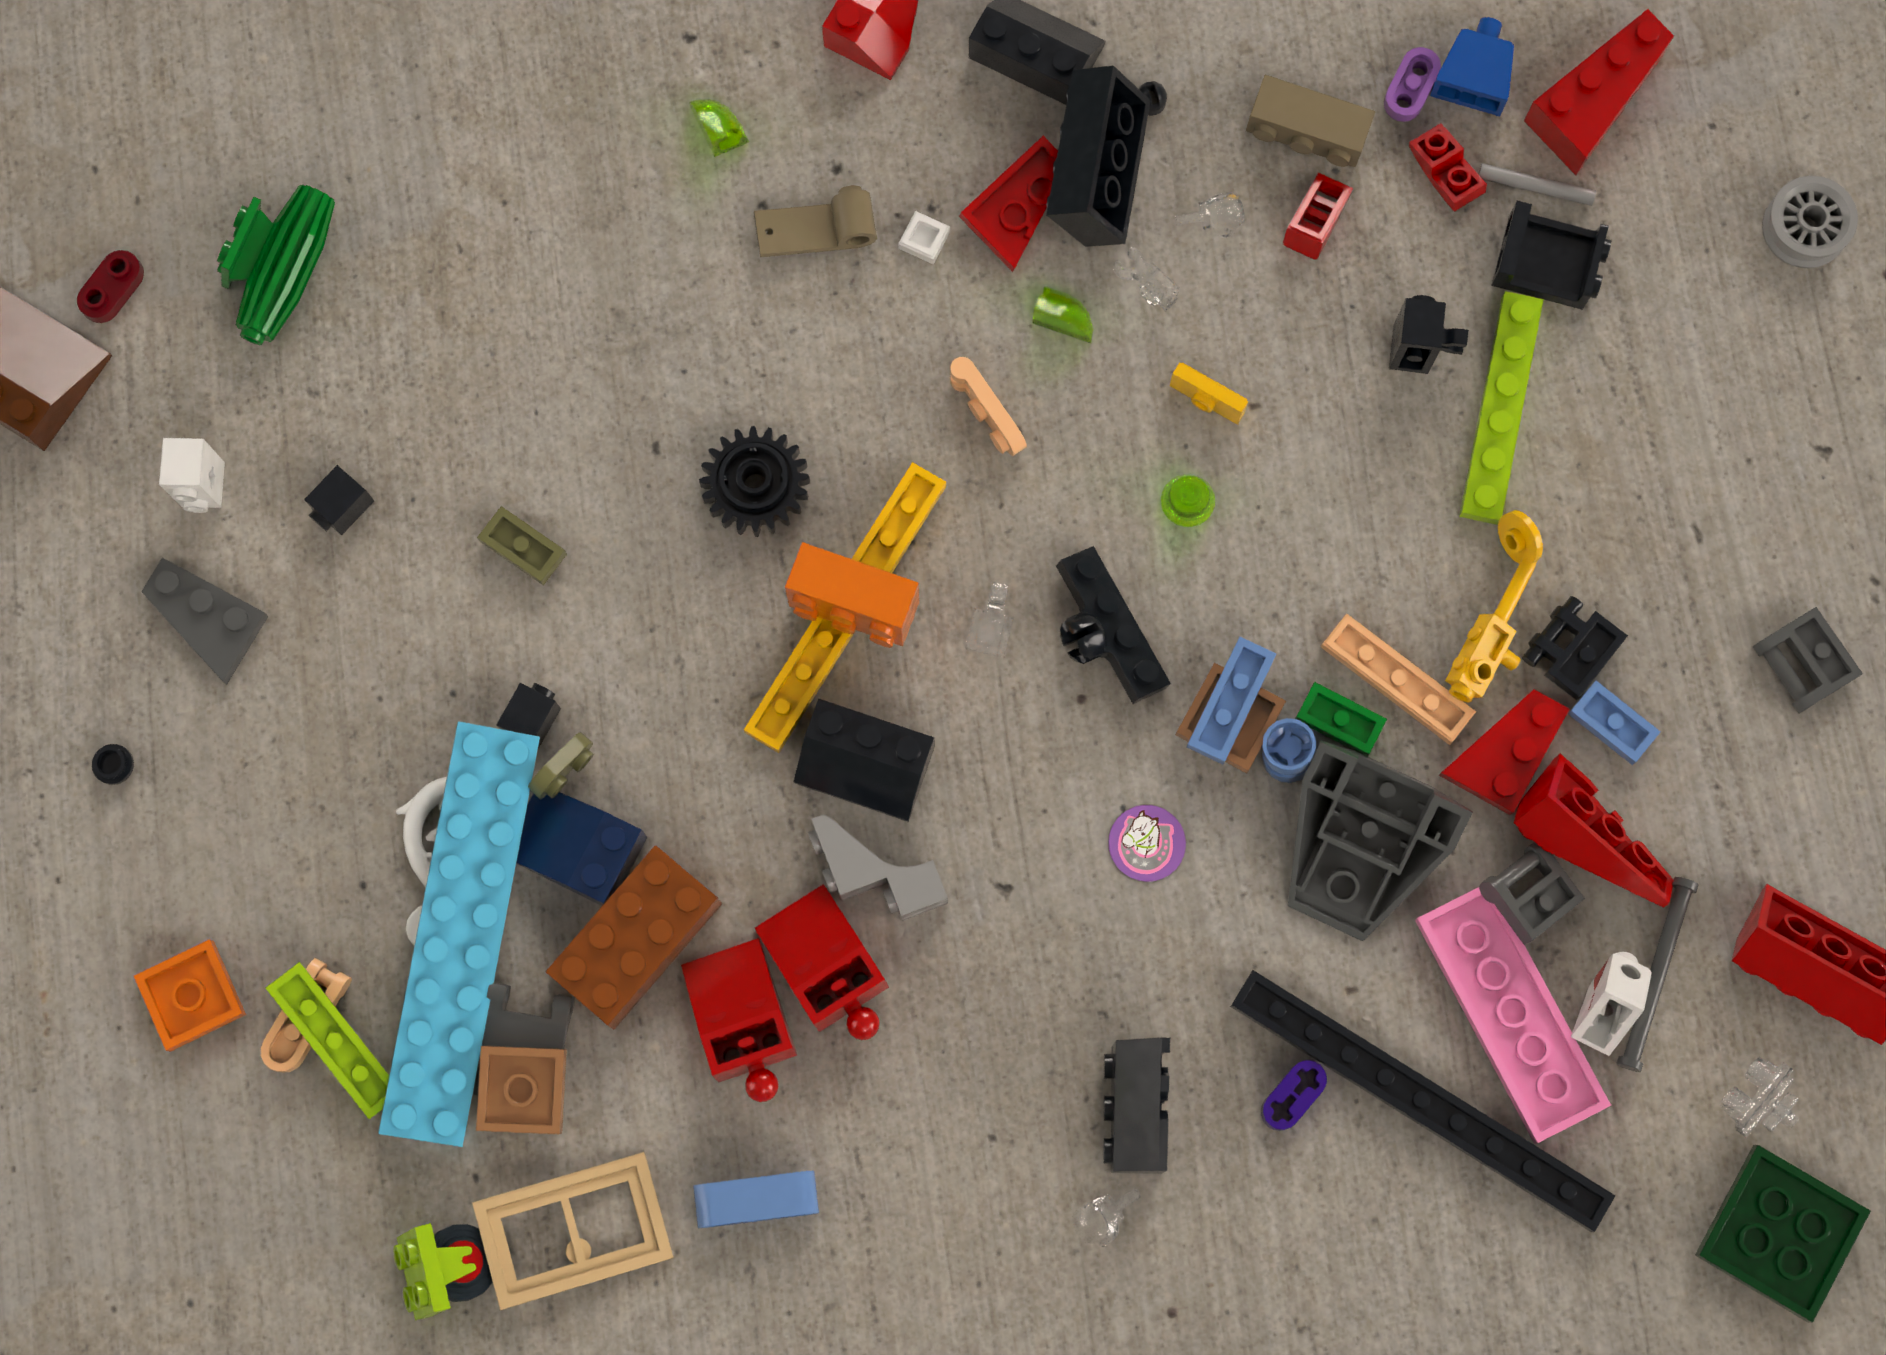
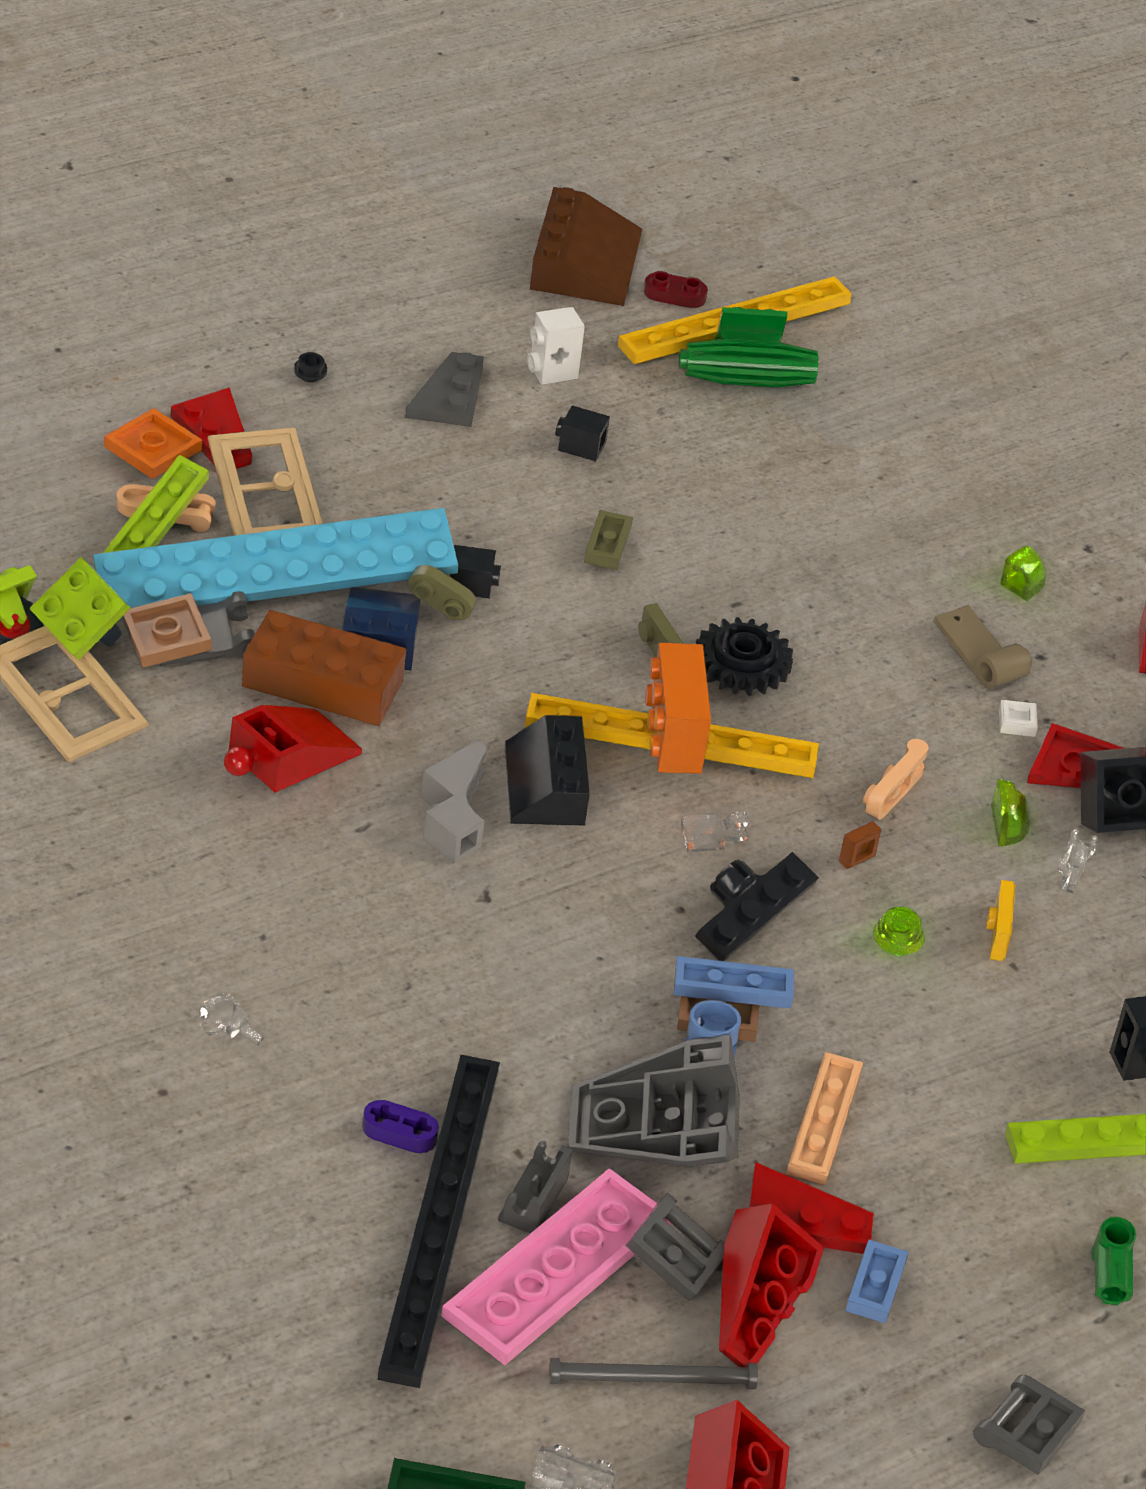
camera: 60 degrees right, 35 degrees down
(181, 912) = (209, 416): none -> red wing
(194, 245) = (674, 335): none -> yellow plate
(317, 853) = (295, 478): none -> tan door
(488, 1185) = (81, 609): none -> lime plate
(686, 557) = (656, 628): none -> olive plate
(756, 1199) = (141, 790): medium blue beam -> none
(821, 960) = (356, 787): red slope -> none
(1066, 485) = (860, 845): none -> dark orange tile
(1135, 1106) = (342, 1003): black wedge -> none
(1147, 843) = (576, 980): sticker -> none
(1341, 719) = (763, 1079): green plate -> none
(1415, 996) = (537, 1189): none -> dark grey hinge
(1491, 635) = (904, 1164): yellow piece -> none
(1586, 653) = (933, 1236): black plate -> none
(1622, 985) = (607, 1320): white torso -> none
(1658, 497) = (1114, 1260): none -> green piece

